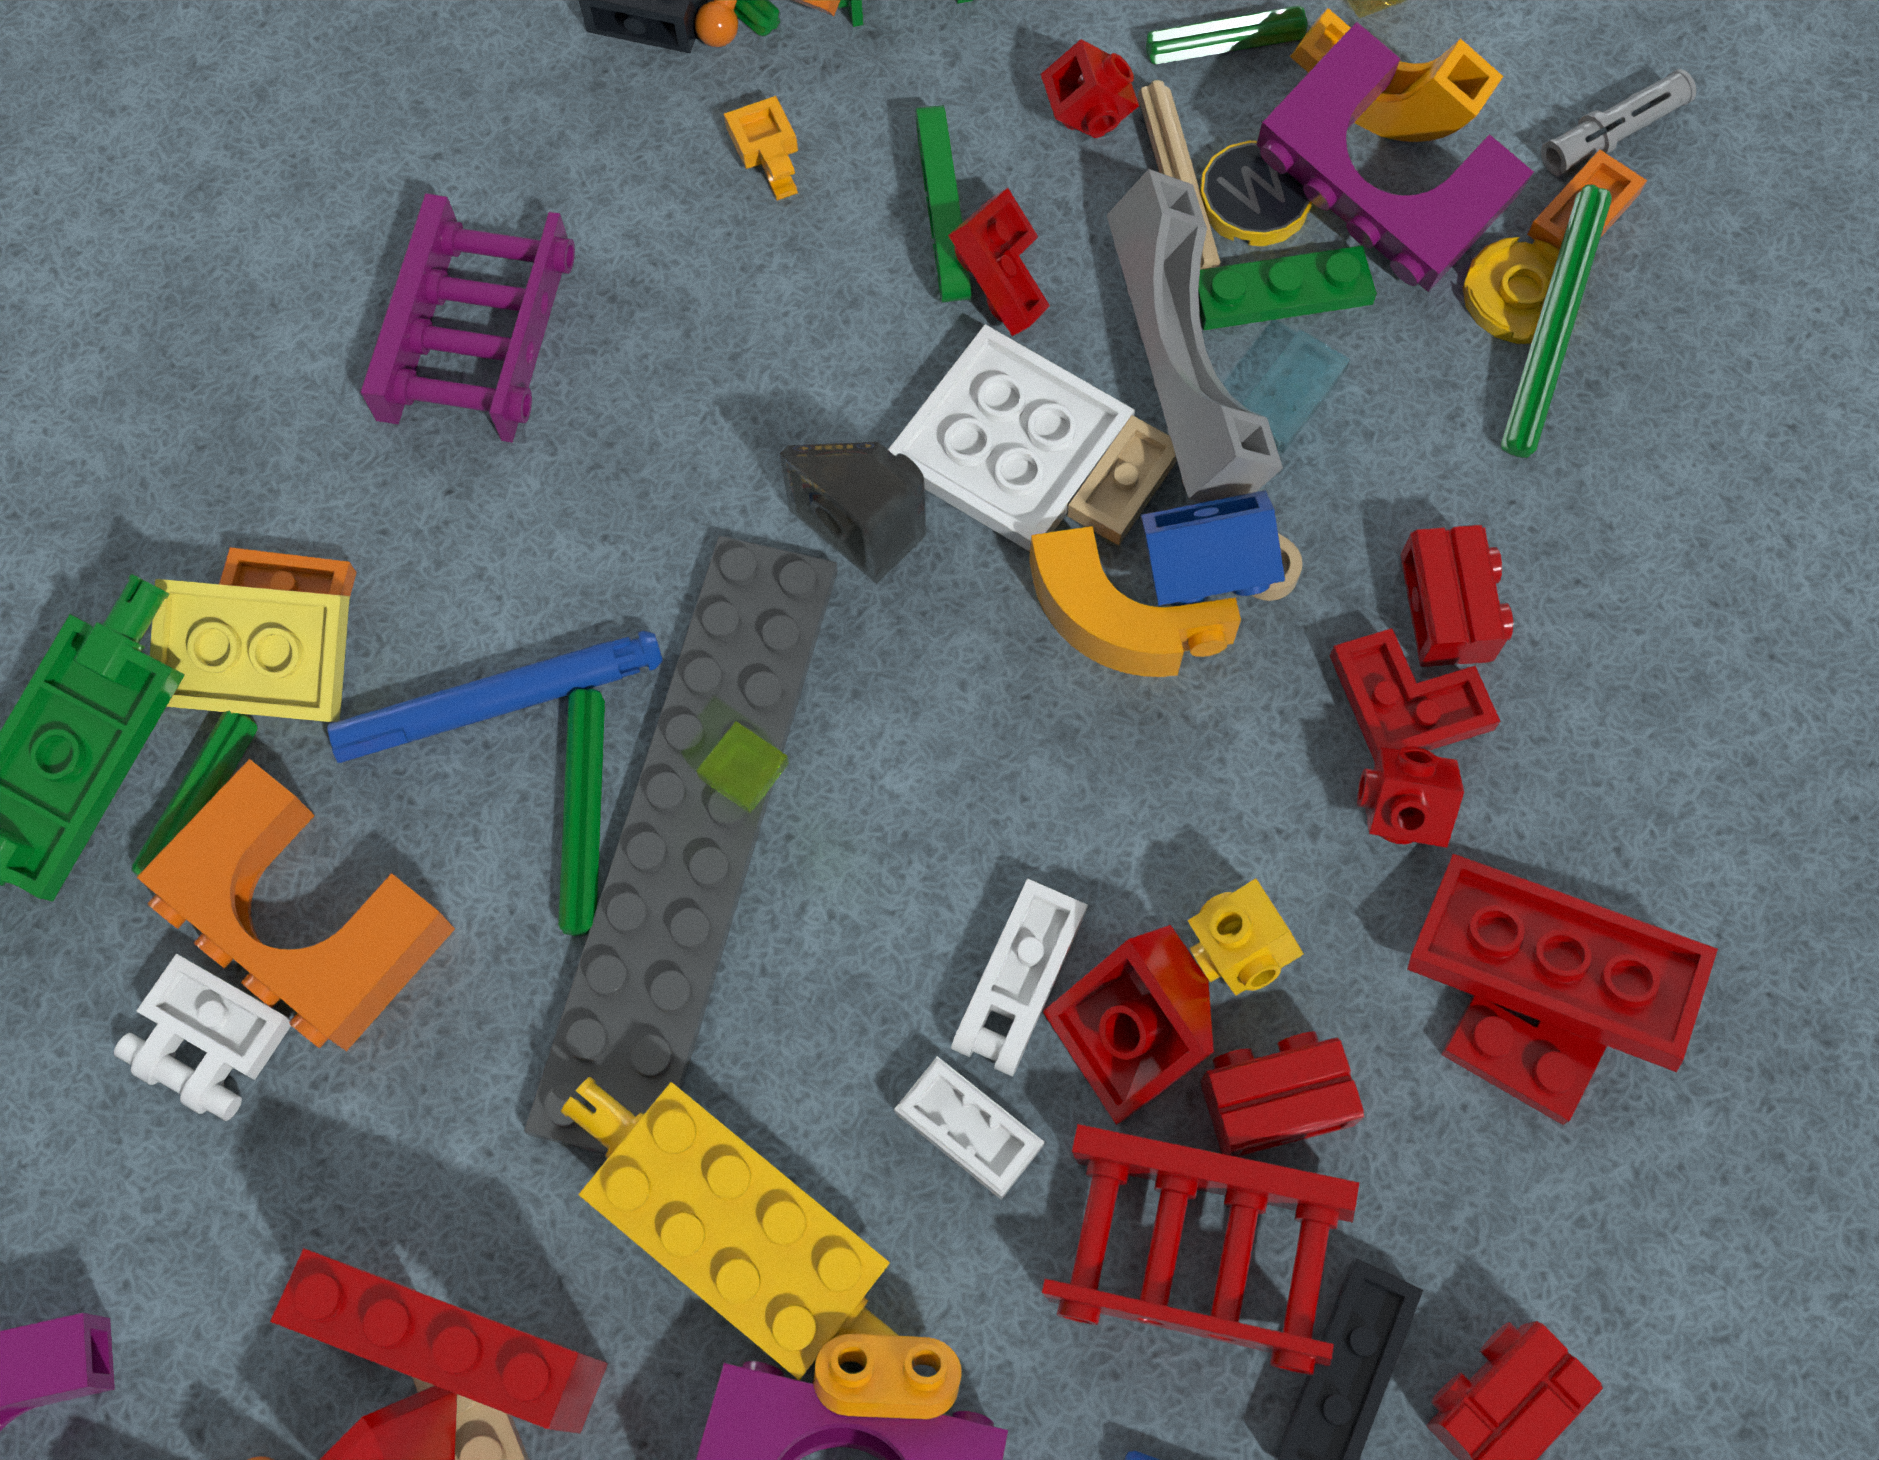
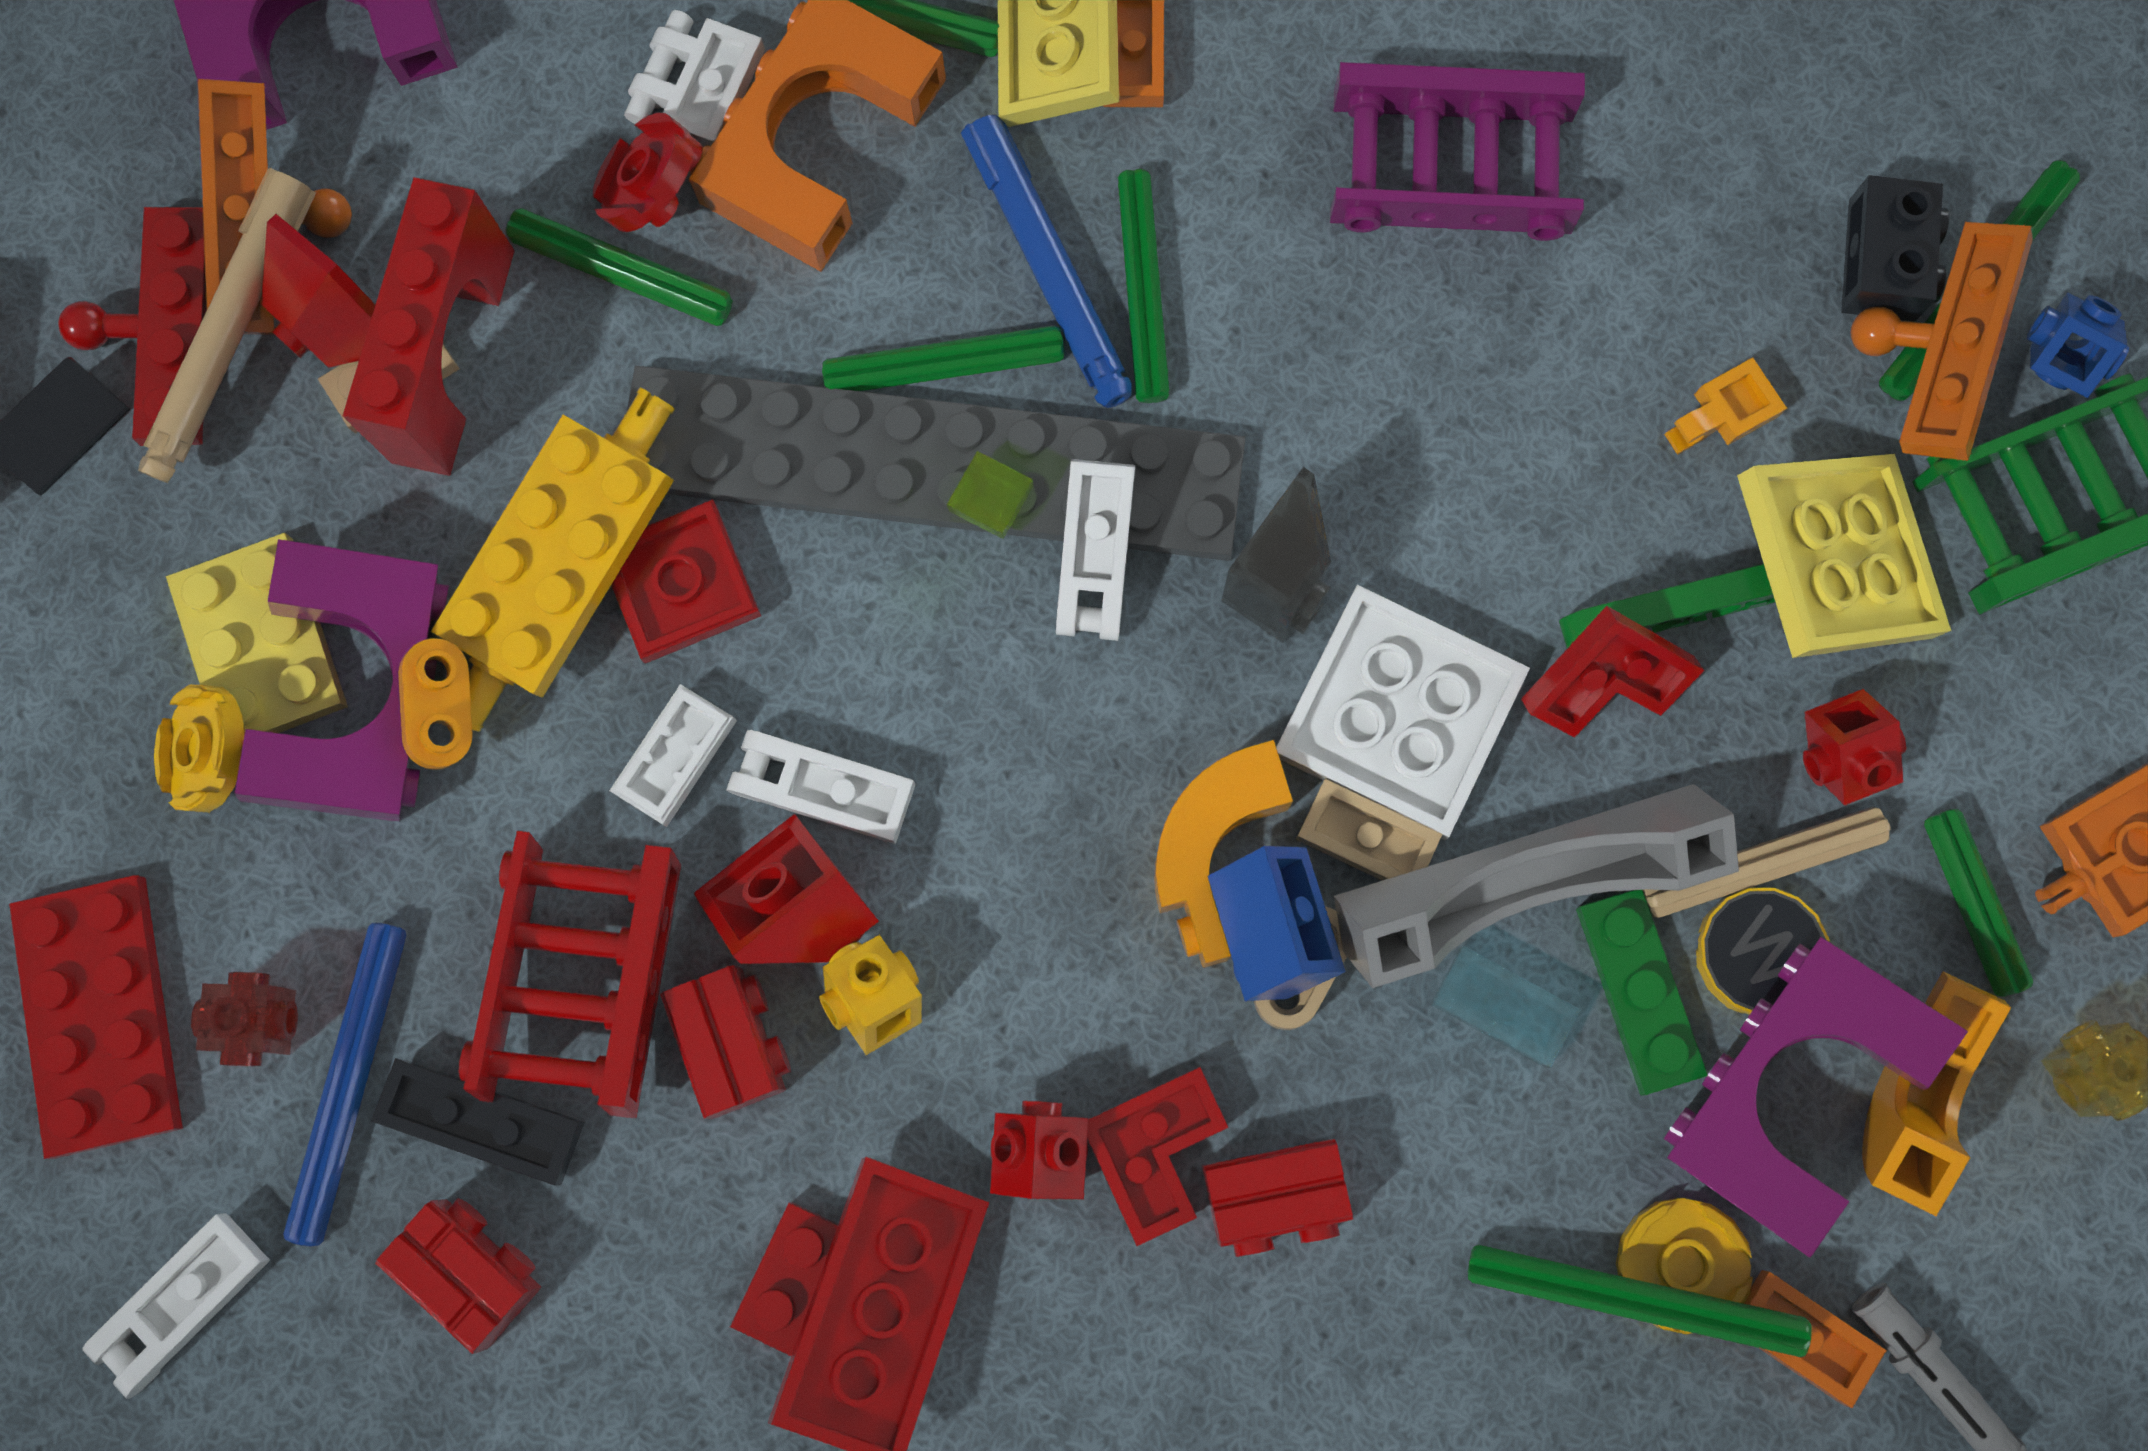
camera: 85 degrees right, 10 degrees up
(332, 1075) = (642, 178): none -> red plate
(402, 1142) = (619, 266): none -> green axle
(541, 611) = (1143, 286): none -> green axle
(782, 1097) = (683, 583): none -> red plate
(814, 674) = (1095, 546): none -> white plate
(920, 70) = (1843, 554): none -> light yellow plate

